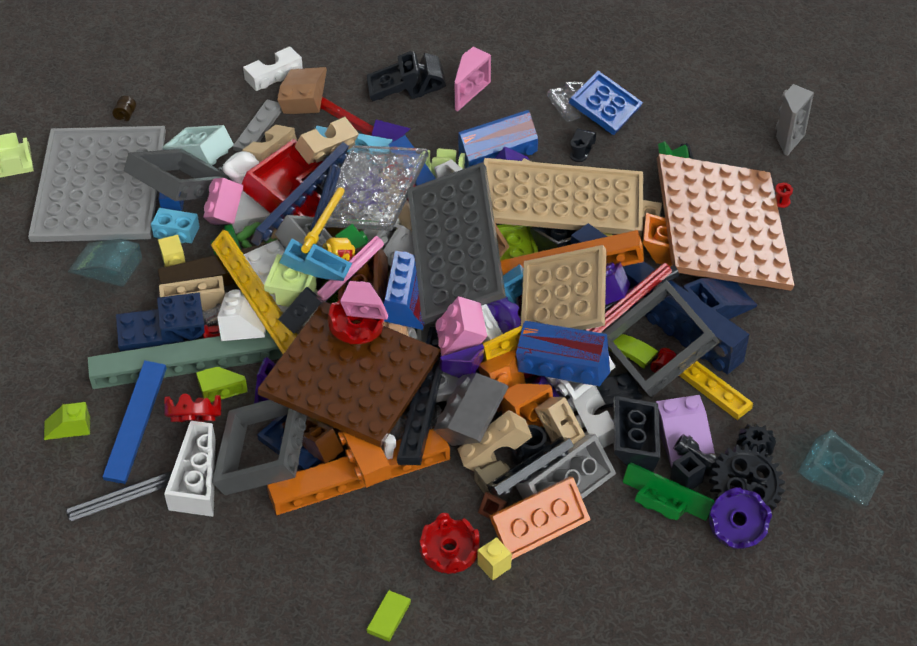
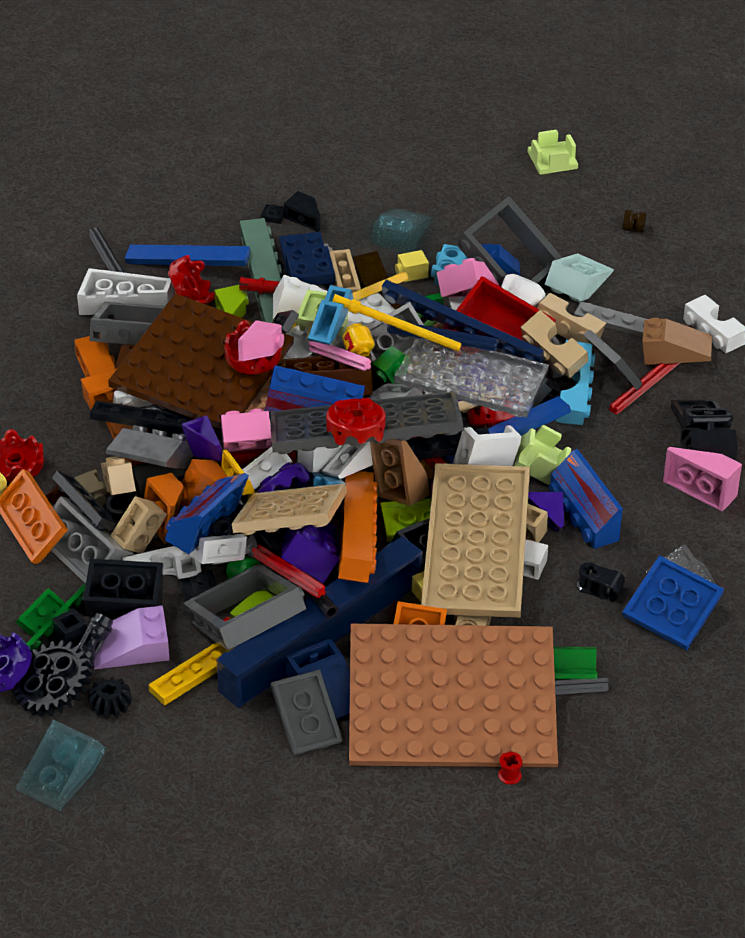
camera: 90 degrees right, 5 degrees down
(63, 362) = (273, 213): none -> black plate
(68, 422) = (194, 221): lime slope -> none
(70, 332) = (303, 211): none -> black slope
(85, 185) = (559, 205): light grey plate -> none
(208, 350) = (258, 285): none -> red pin
(347, 110) = (613, 359): none -> dark grey tile
(388, 130) = (612, 415): dark purple slope -> none
(484, 238) = (356, 419): none -> red plate
(755, 307) = (306, 712): none -> dark grey tile
(793, 117) = (634, 772): light grey slope -> none

